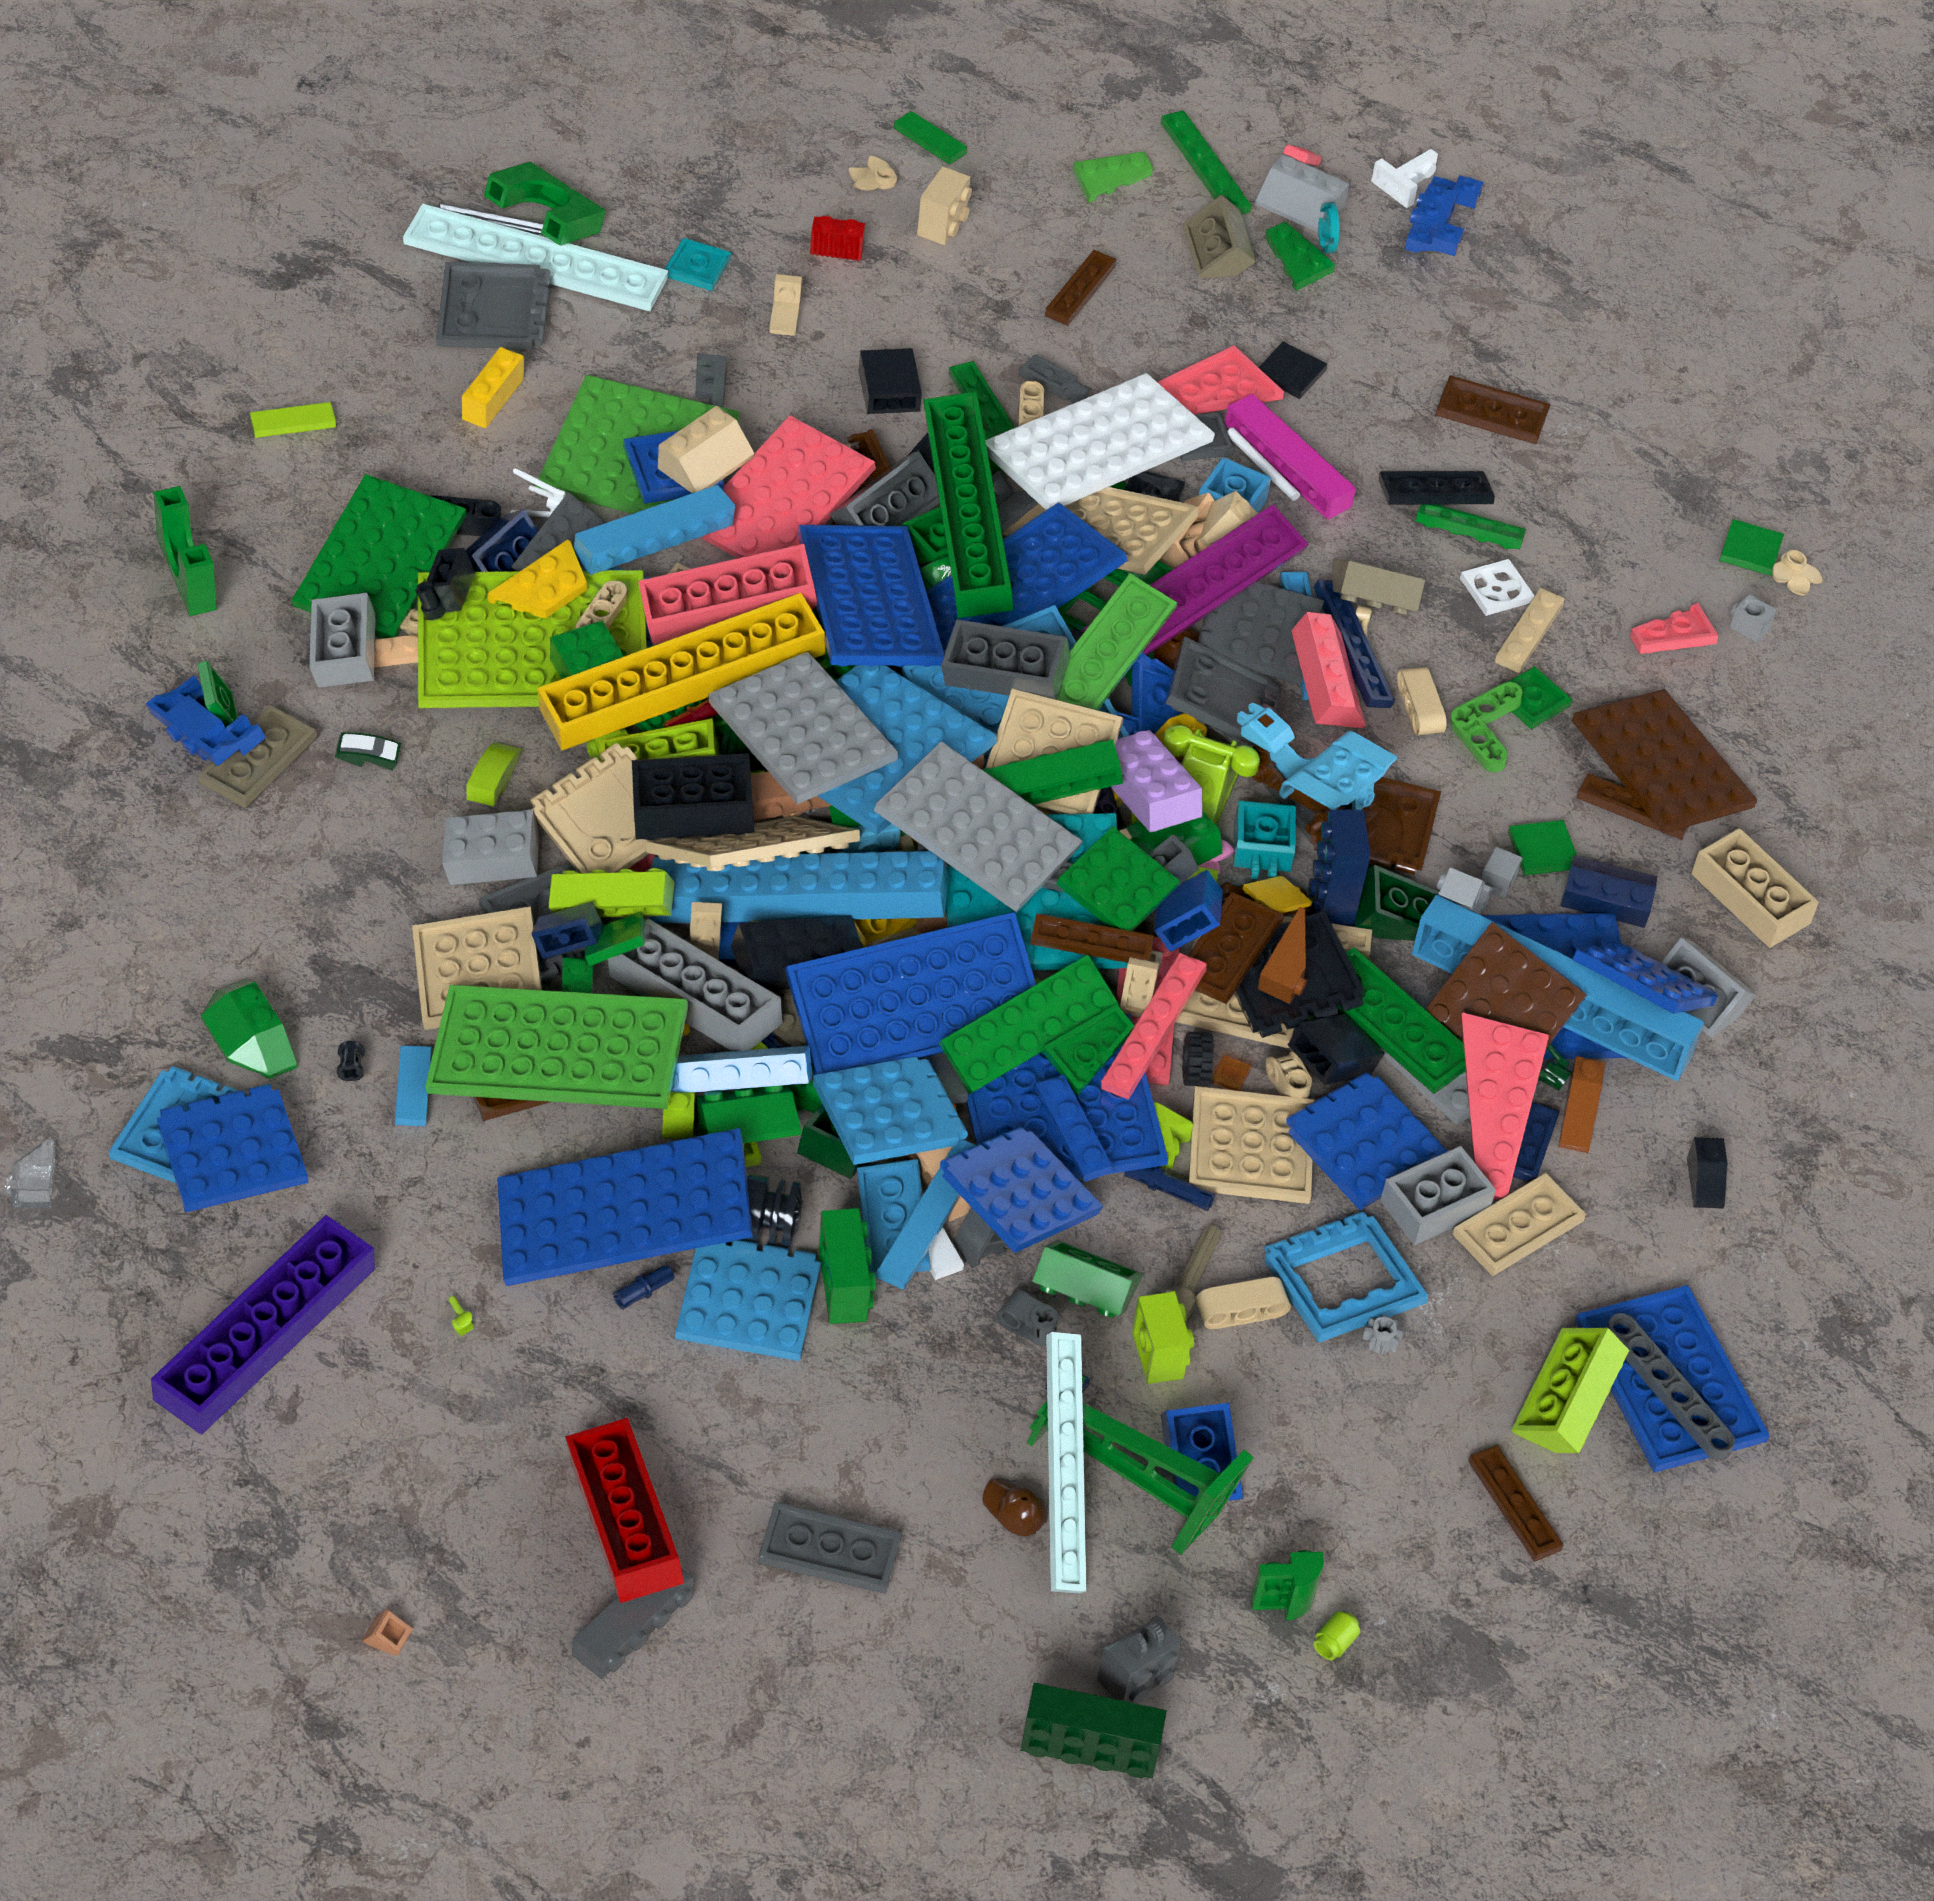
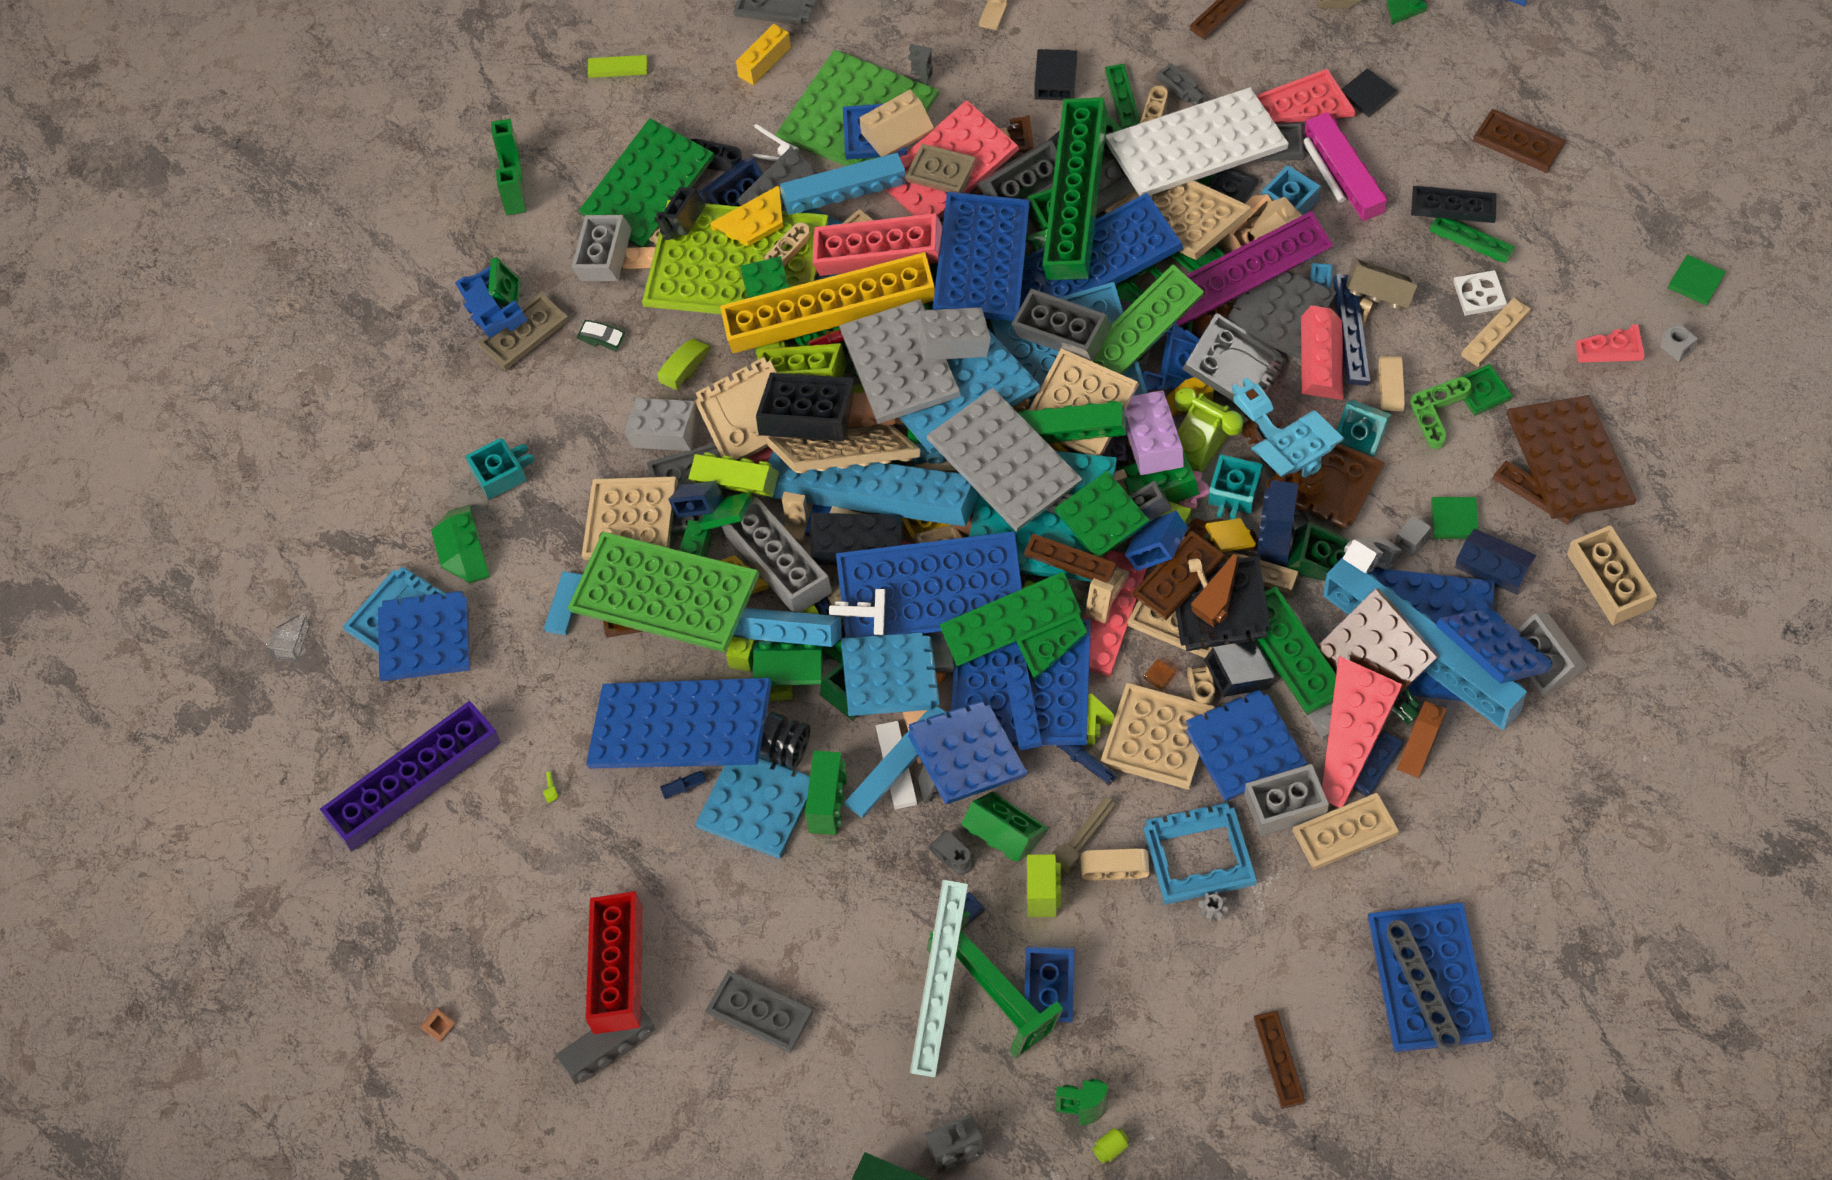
camera: 25 degrees right, 10 degrees up
(274, 926) = (497, 466): none -> teal hinge
(350, 1061) = (524, 578): black bush -> none
(780, 499) = (941, 169): none -> dark tan plate
(840, 1034) = (864, 610): none -> white bracket
(869, 683) = (952, 333): none -> light grey brick
(887, 1201) = (872, 742): dark azure tile -> none
(1016, 1515) = (894, 992): reddish brown cap -> none
(1153, 1026) = (1103, 632): coral plate -> none
(1198, 1059) = (1132, 662): black tyre -> none
(1253, 930) = (1196, 566): none -> tan hand
(1412, 753) = (1363, 427): none -> teal slope
(1571, 1389) = (1344, 976): lime slope -> none
(1708, 1172) = (1506, 810): black slope -> none
(1796, 572) = (1726, 306): tan plate -> none

